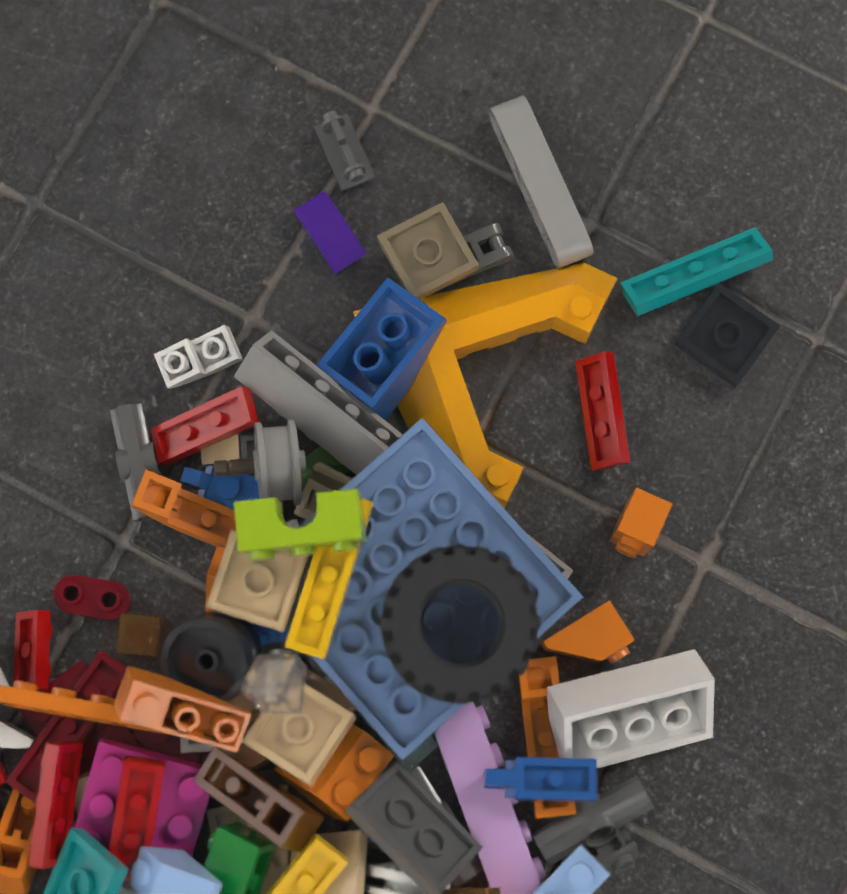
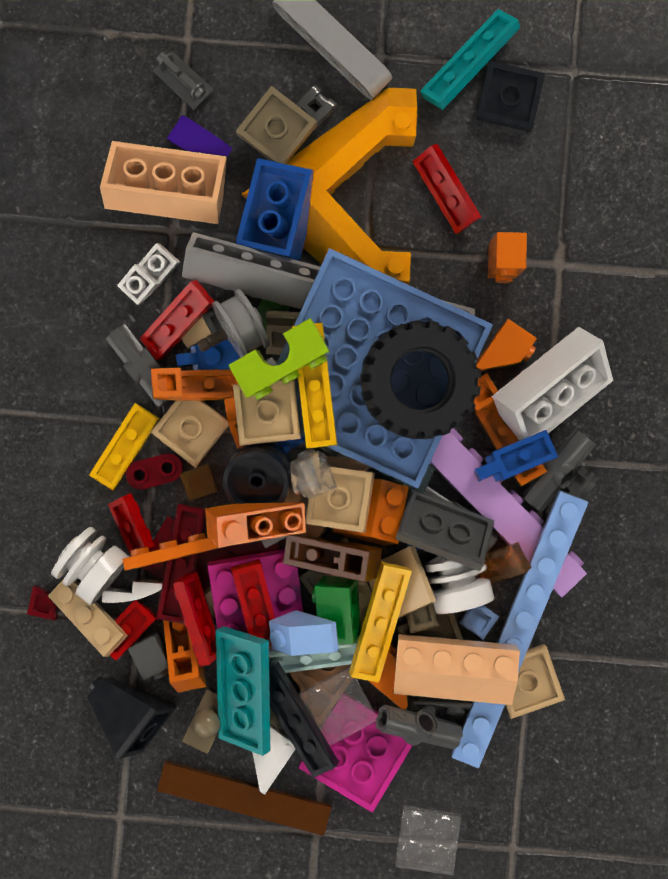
camera: 25 degrees left, 10 degrees up
(70, 551) = (124, 446): none -> yellow tile
(160, 566) = (191, 429): none -> tan tile
(266, 259) = (164, 182): none -> light nougat slope

